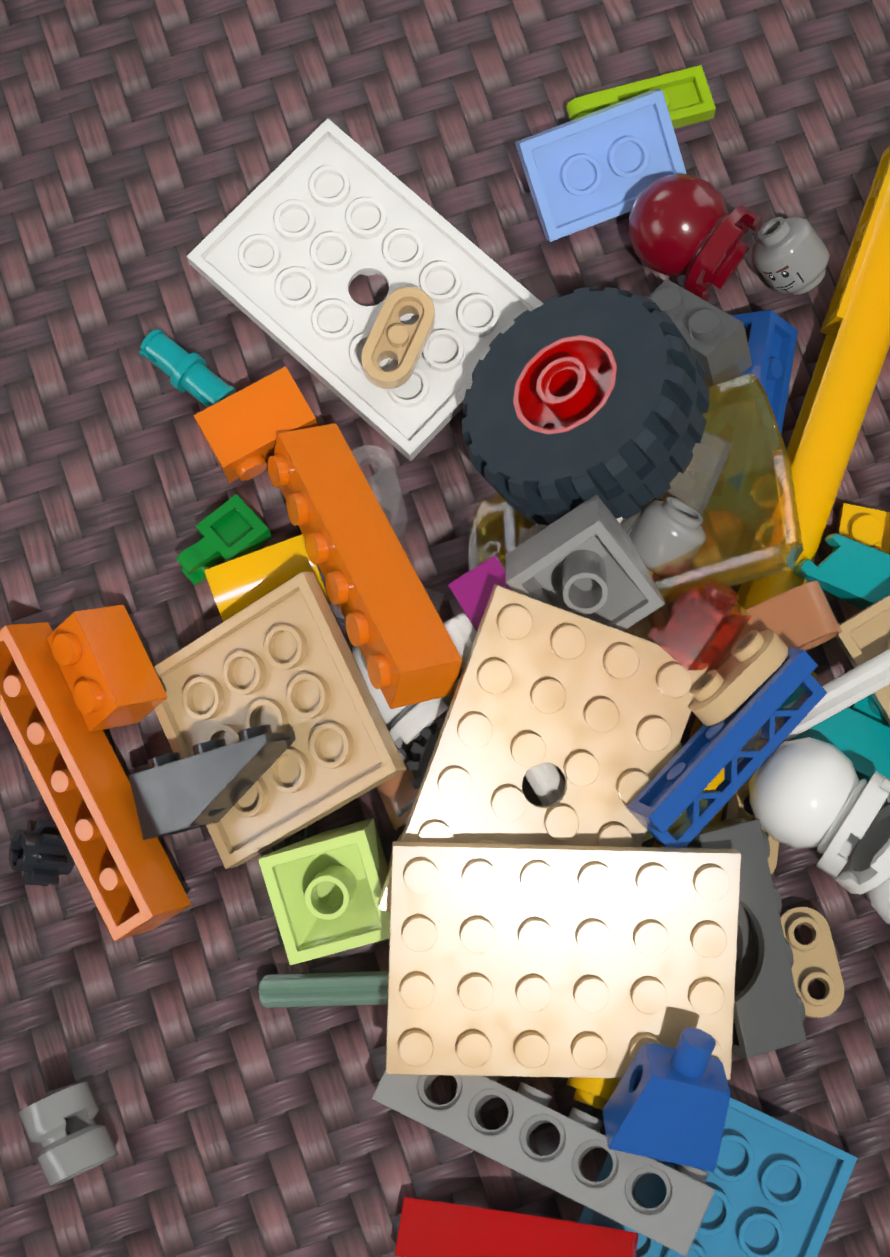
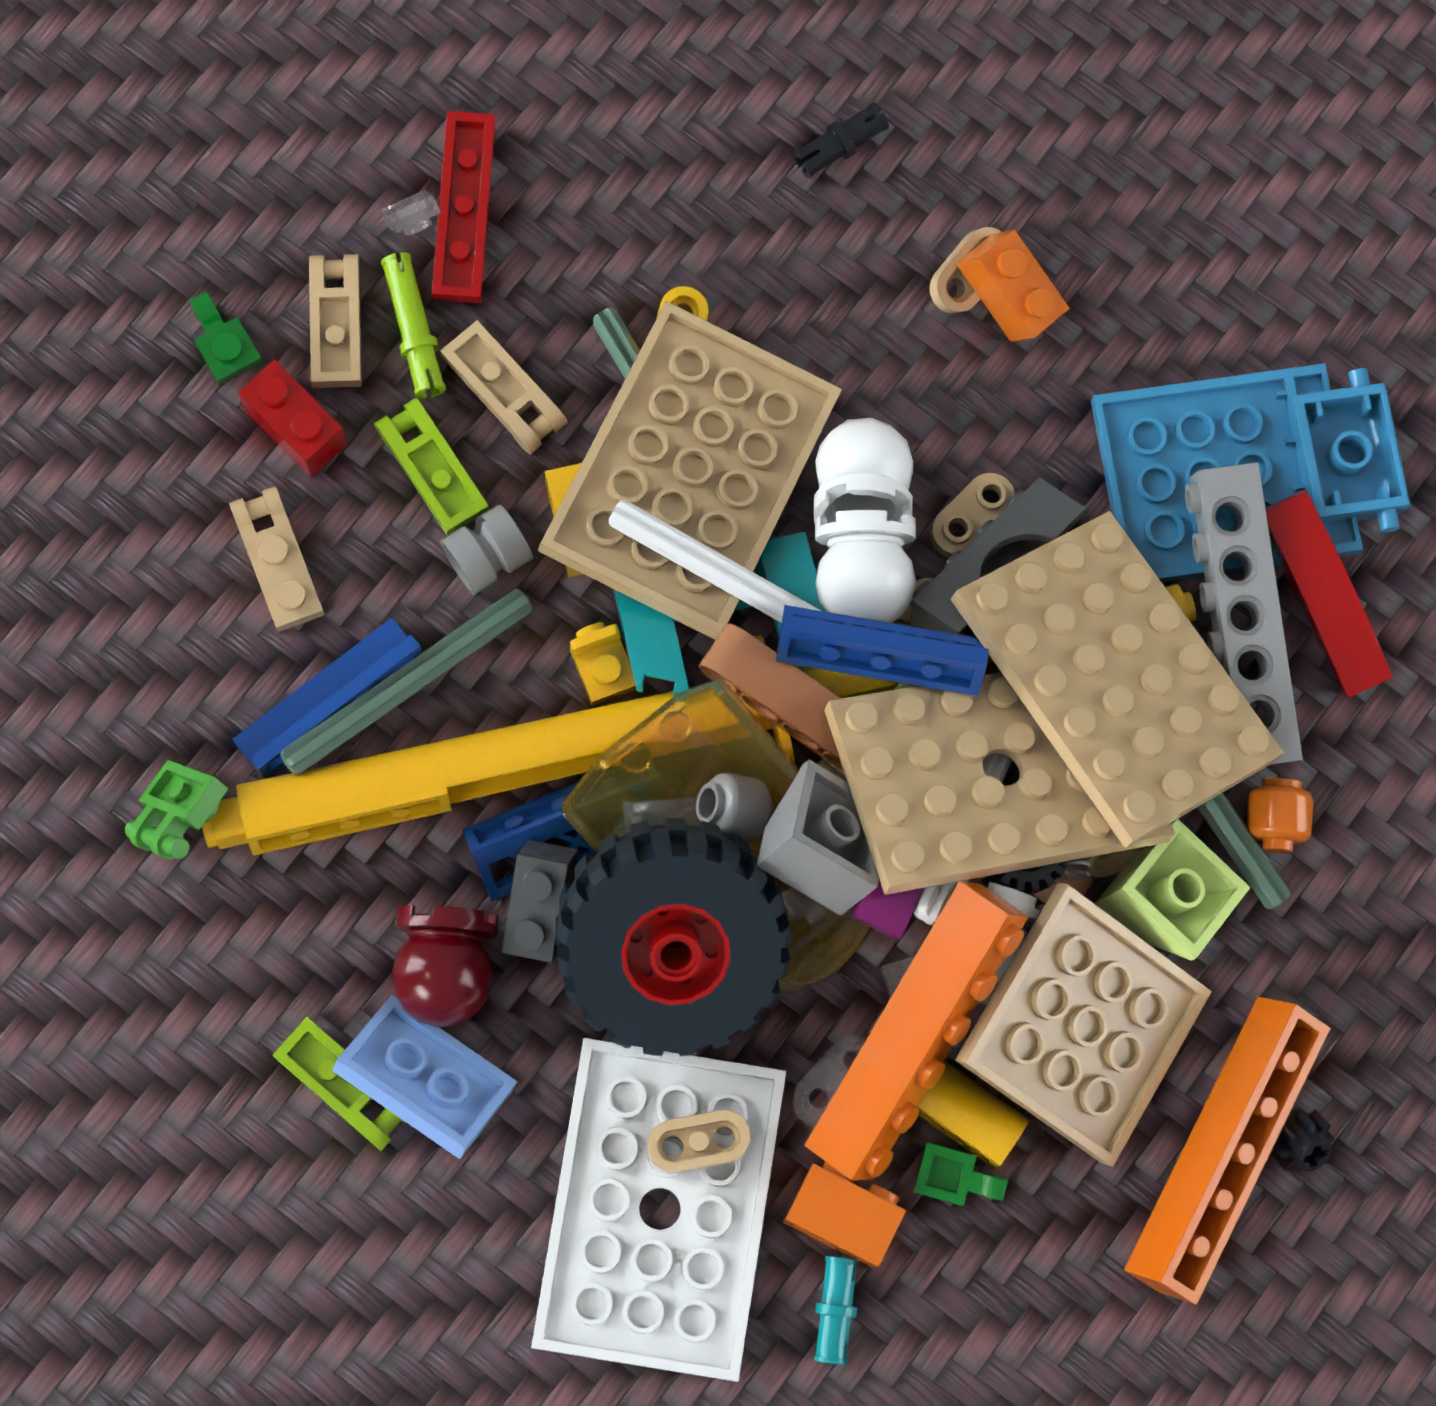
camera: 135 degrees left, 0 degrees up
(106, 667) = (1129, 1190): orange brick -> none
(203, 788) = (1179, 1052): slope -> none
(338, 1045) = (1280, 814): none -> orange head
(671, 1103) = (1163, 537): blue torso -> none
(702, 626) = (808, 721): clear red brick -> none
(751, 664) = (825, 671): tan plate -> none
(790, 255) = (406, 870): light grey head -> none

